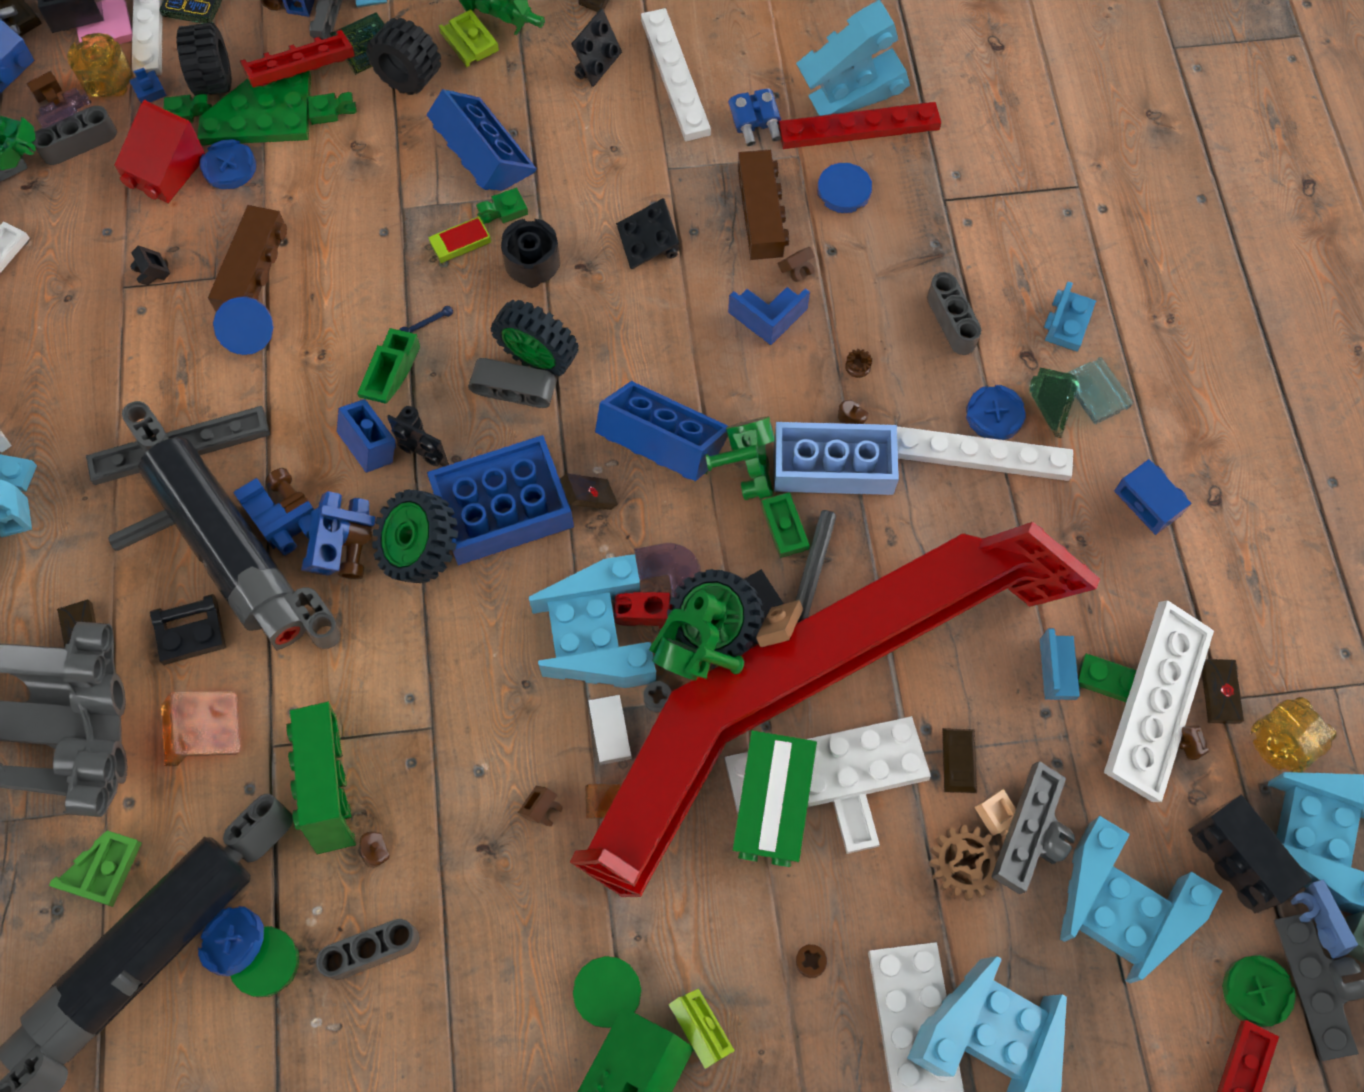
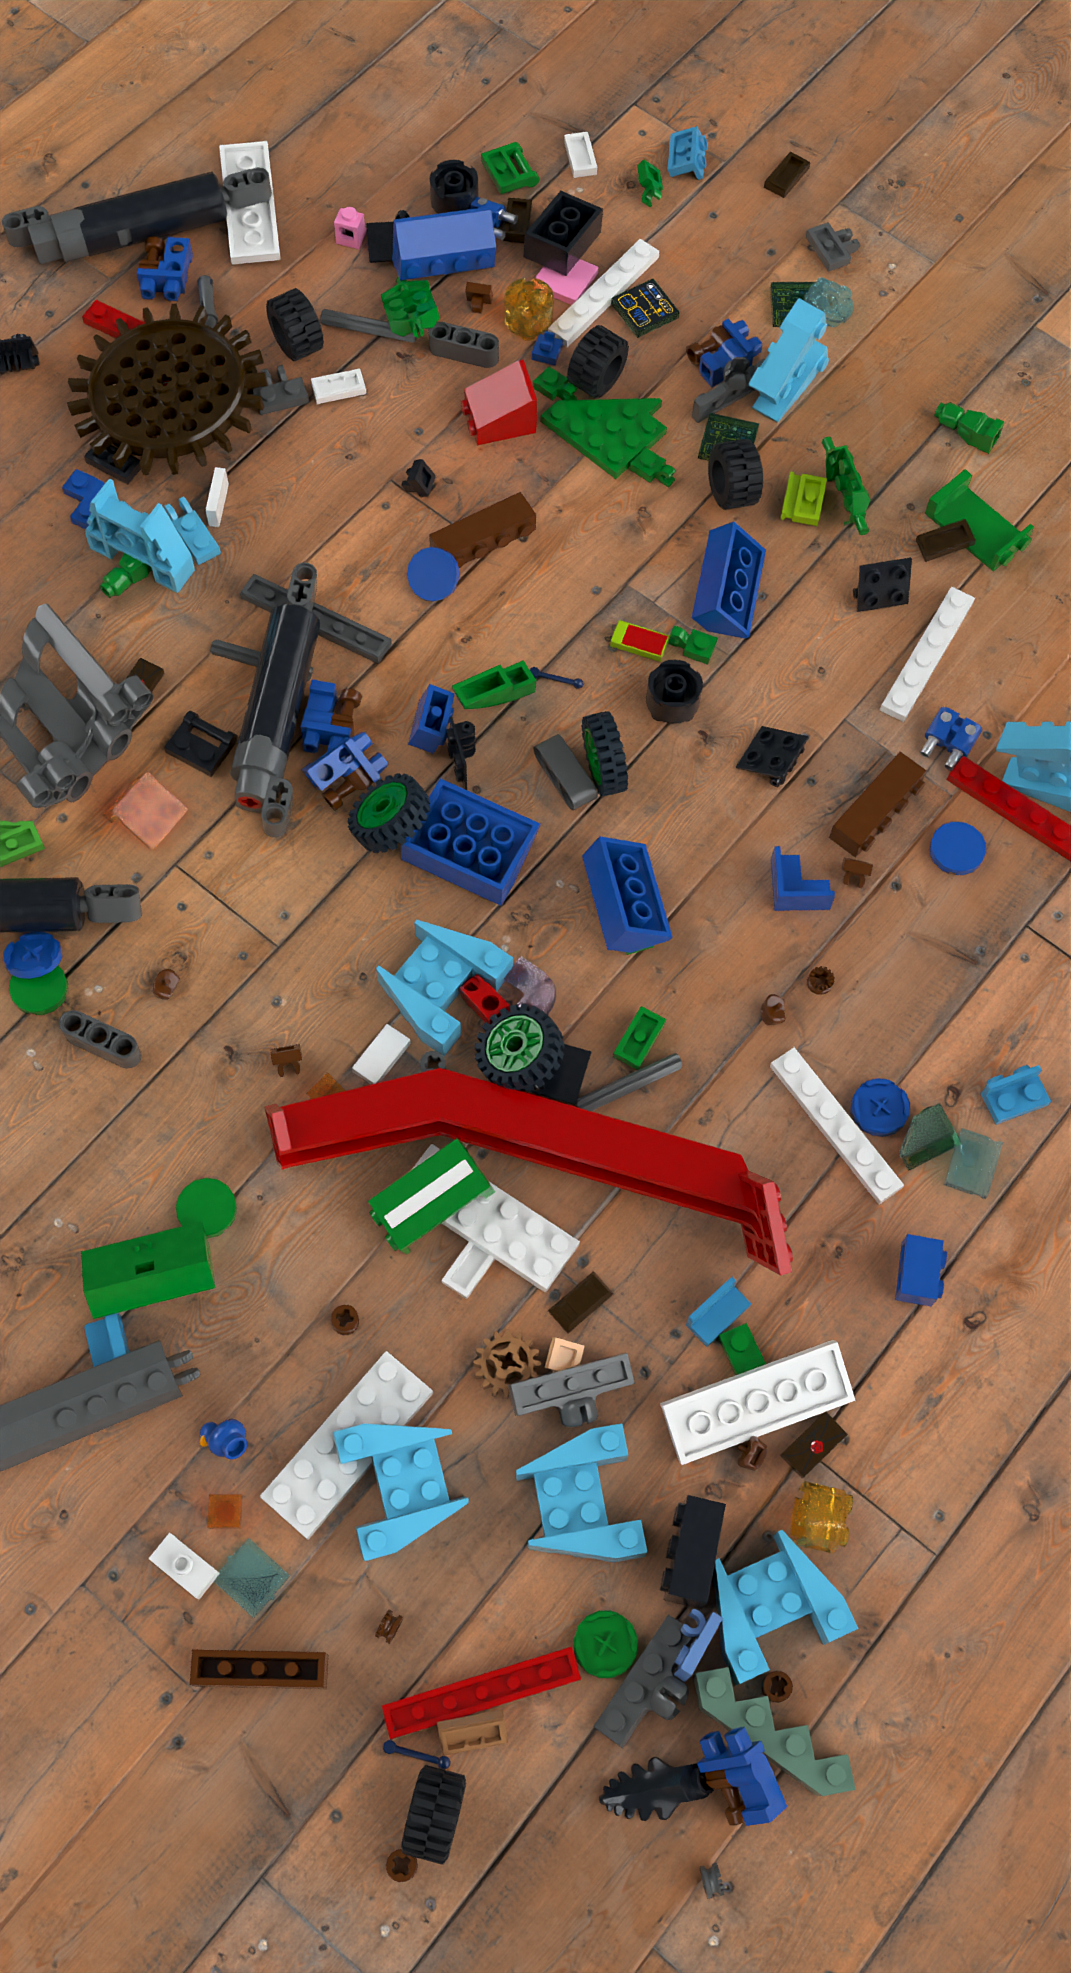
camera: 45 degrees right, 0 degrees up
(68, 106) = (461, 318): plate -> none
(228, 164) = (543, 451): blue tile -> none
(298, 60) = (662, 415): red hinge -> none
(319, 778) = (178, 908): green wedge -> none
(588, 491) = (531, 890): dark brown tile -> none
(687, 660) = (466, 1052): green piece -> none
(701, 1028) = (234, 1284): lime plate -> none
(749, 443) = (669, 951): green piece -> none
(779, 623) = (555, 1093): medium nougat plate -> none
(835, 458) = (721, 1026): light blue brick -> none
(954, 301) = (933, 998): dark grey beam -> none

